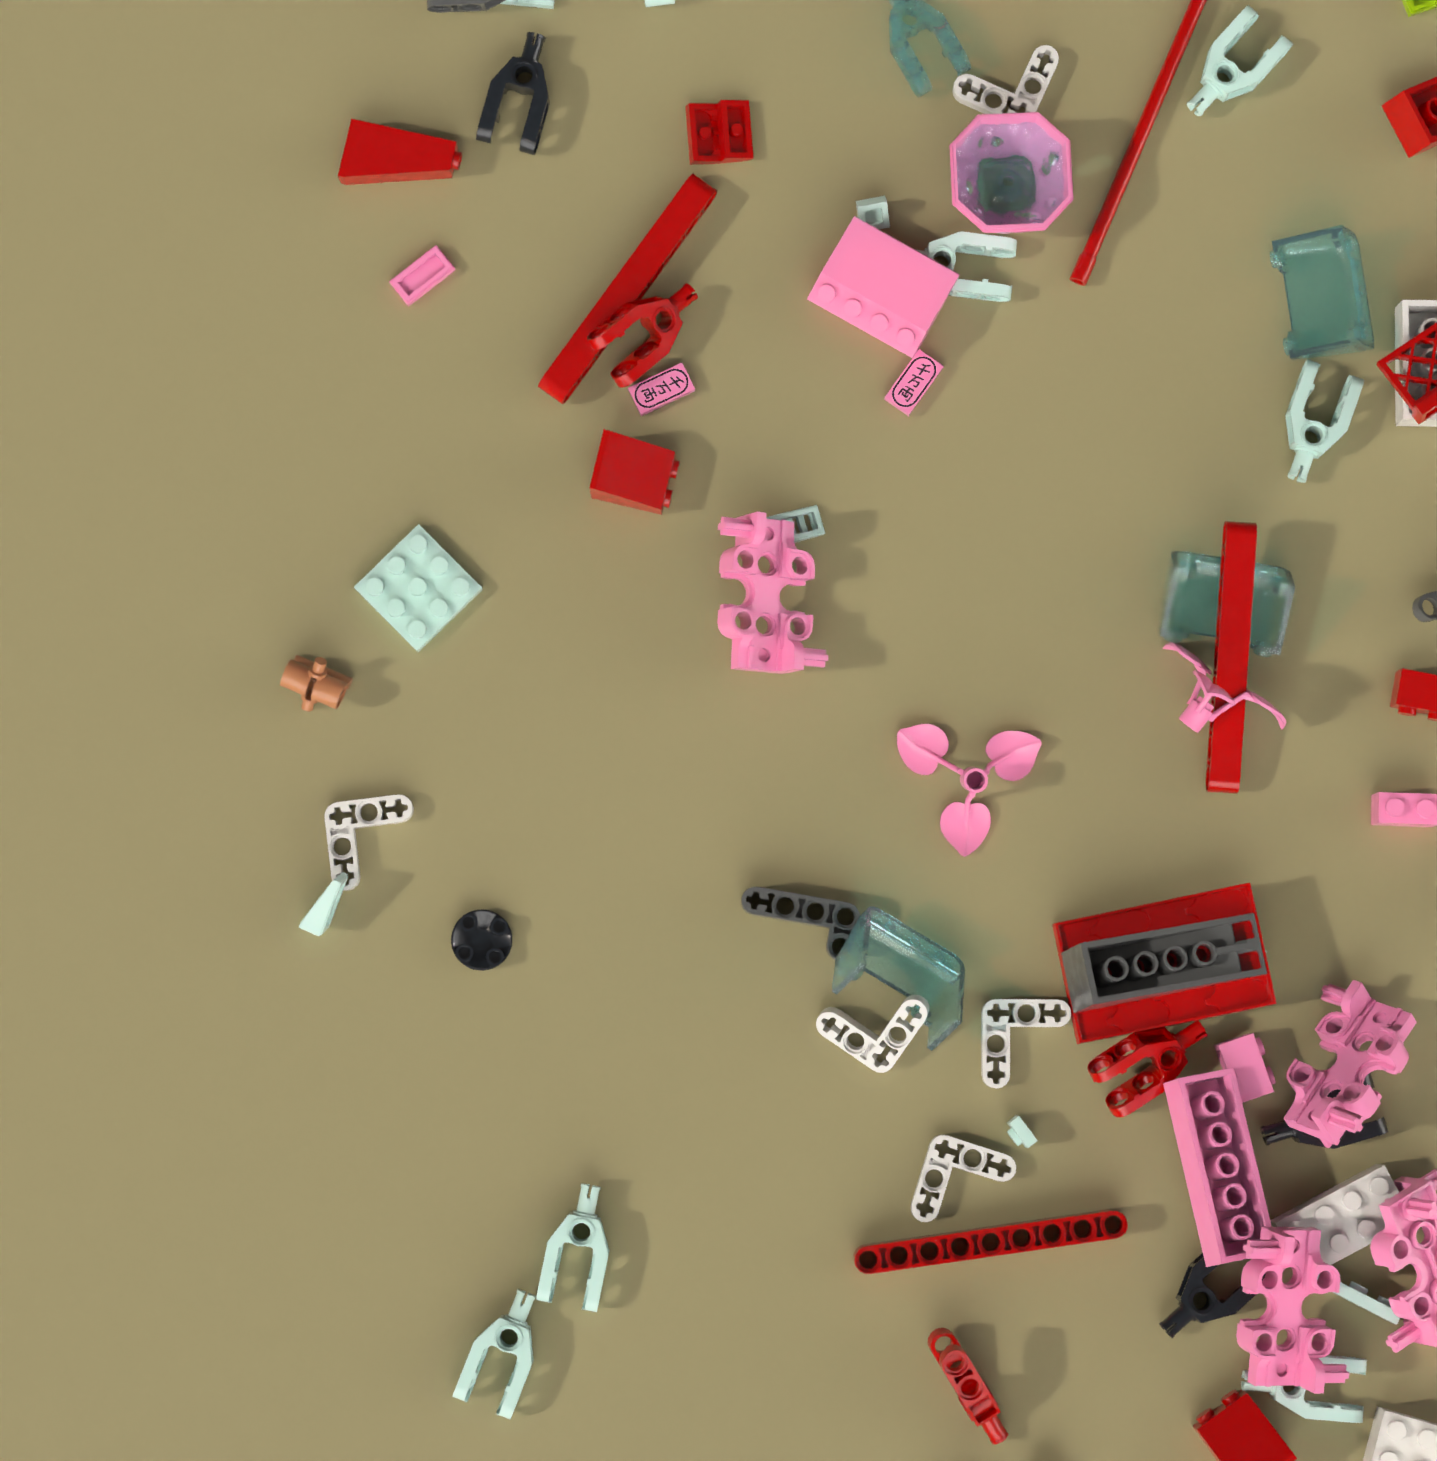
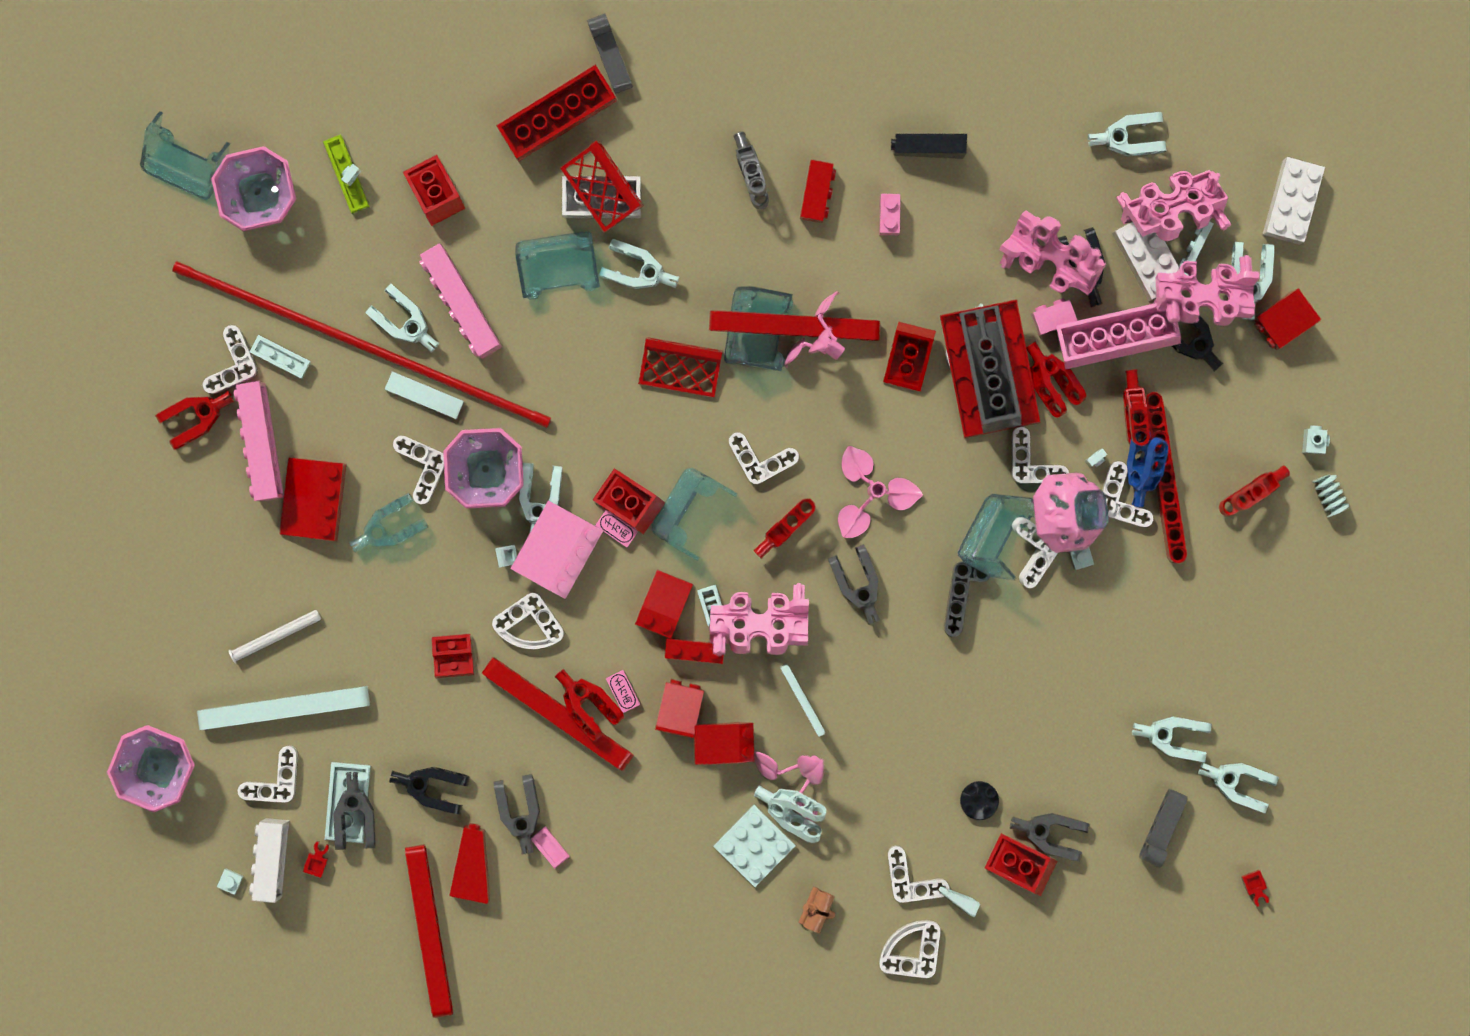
camera: 85 degrees left, 5 degrees up
(229, 838) = (917, 963): none -> white beam
(297, 90) = (429, 931): none -> red beam
(339, 1378) = (1254, 885): none -> red plate
(379, 1003) = (1020, 864): none -> red slope
(417, 1033) = (1040, 840): none -> dark grey piece
(432, 1231) = (1162, 828): none -> dark grey beam
(468, 634) = (781, 808): none -> light aqua piece
(480, 249) = (531, 819): none -> dark grey piece
(537, 670) = (810, 767): none -> bright pink plant
(579, 537) = (724, 743): none -> red slope
(645, 662) = (802, 699): none -> light aqua tile
(722, 495) = (691, 651): none -> red brick
(787, 245) = (527, 610): none -> white beam
(795, 452) = (664, 604): none -> red slope
(806, 745) = (872, 588): none -> dark grey piece
(862, 1107) = (1081, 558): none -> light aqua plate
(911, 632) = (782, 531): none -> red piece
(919, 455) = (689, 484): none -> clear light blue windscreen
(937, 1083) = (1069, 512): none -> bright pink rock
(955, 401) = (629, 501): none -> red slope
(996, 1200) = (1140, 470): none -> blue piece
(1009, 608) = (762, 467): none -> white beam
(1107, 1194) = (1135, 403): none -> red piece
(1120, 94) = (424, 395): none -> light aqua tile
(1182, 838) = (909, 356): none -> red slope
(1190, 488) = (684, 350): none -> red fence
(1266, 146) = (462, 304): none -> bright pink brick

